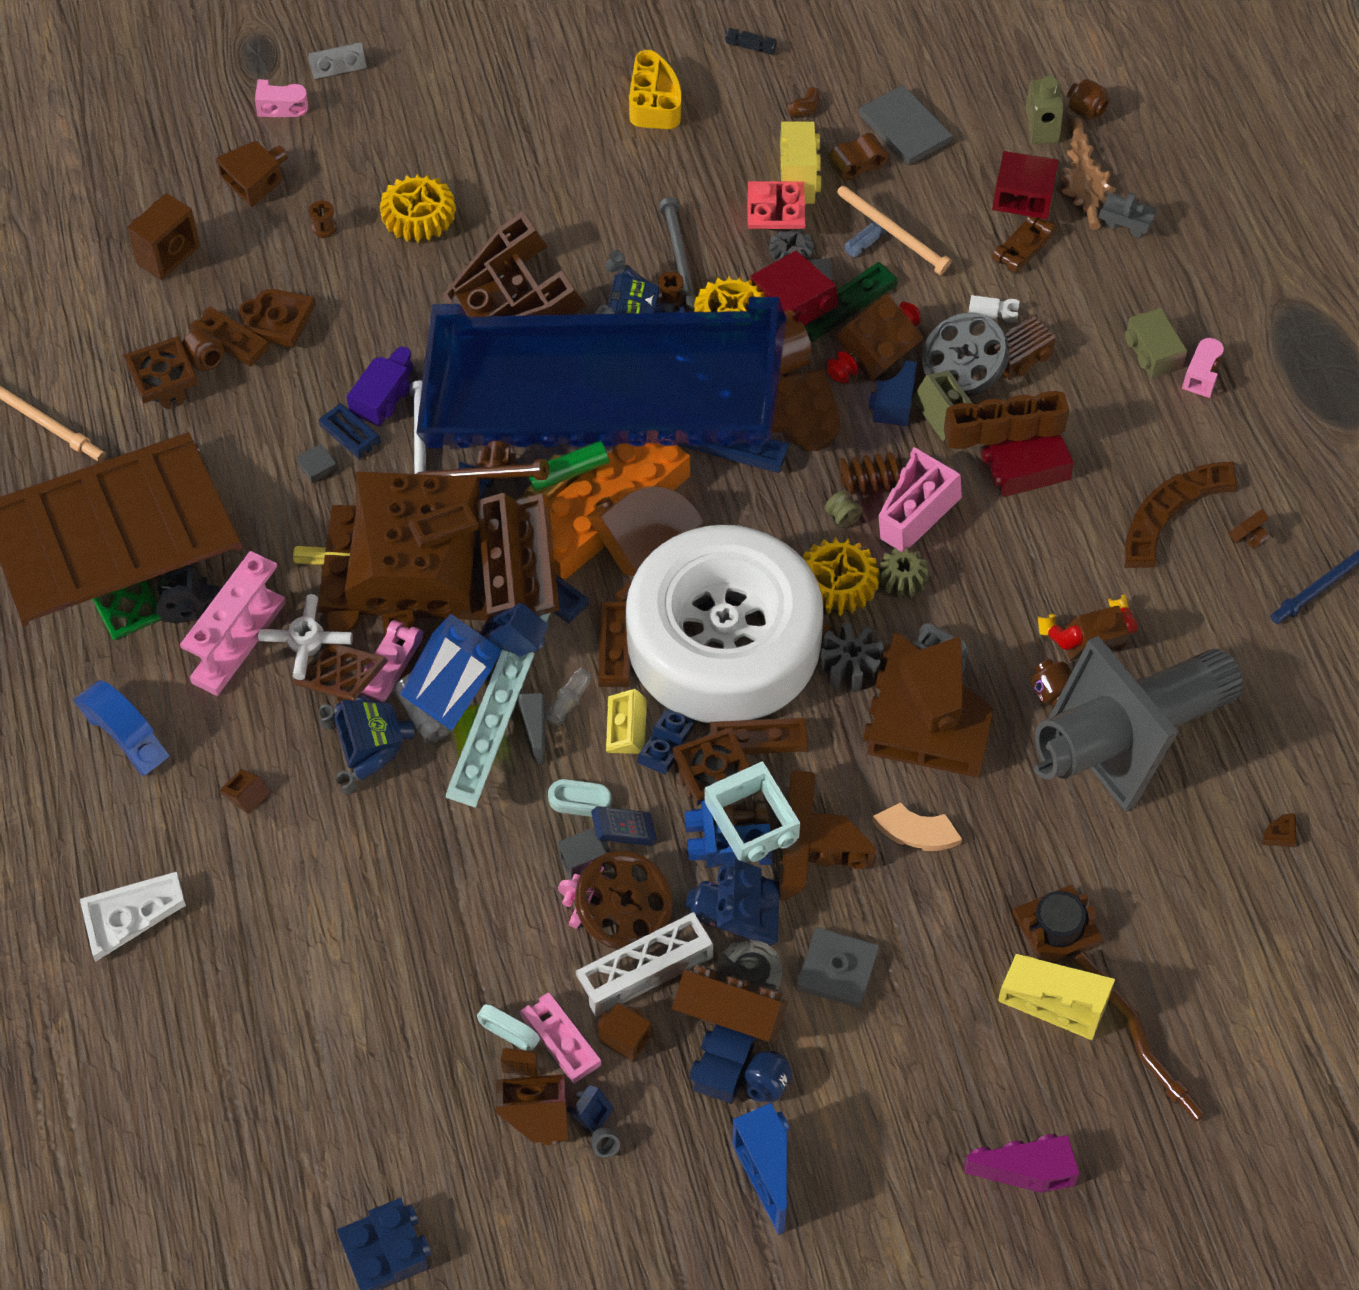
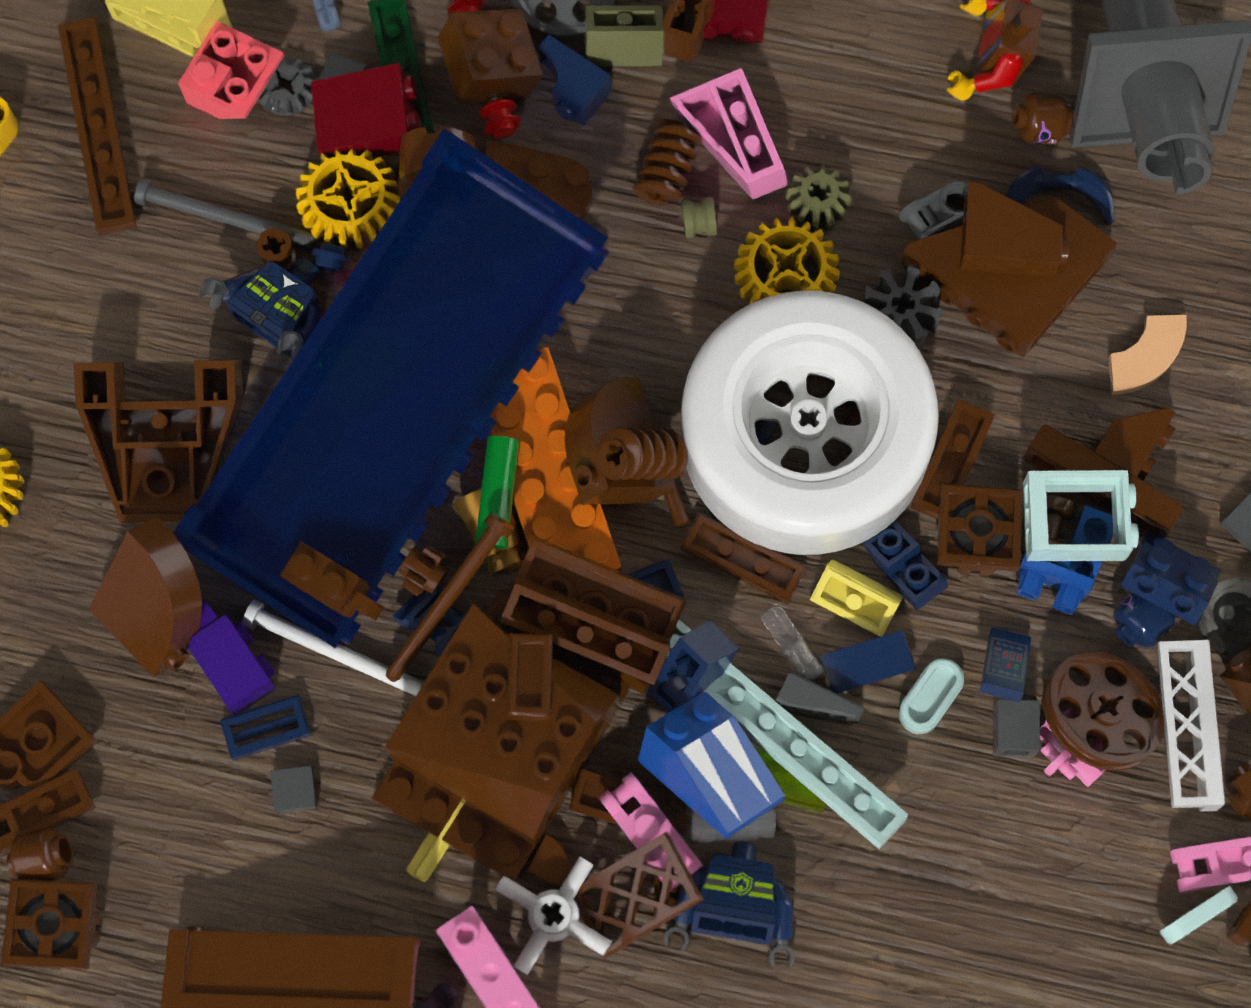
camera: 60 degrees left, 15 degrees up
(394, 319) = (151, 597): none -> reddish brown brick
(456, 408) = (330, 583): none -> reddish brown hinge
(580, 745) = (868, 662): none -> dark blue slope
(637, 523) = (642, 454): none -> reddish brown piece
(698, 162) = (97, 126): none -> reddish brown plate
(1024, 731) = (1082, 181): none -> dark blue piece

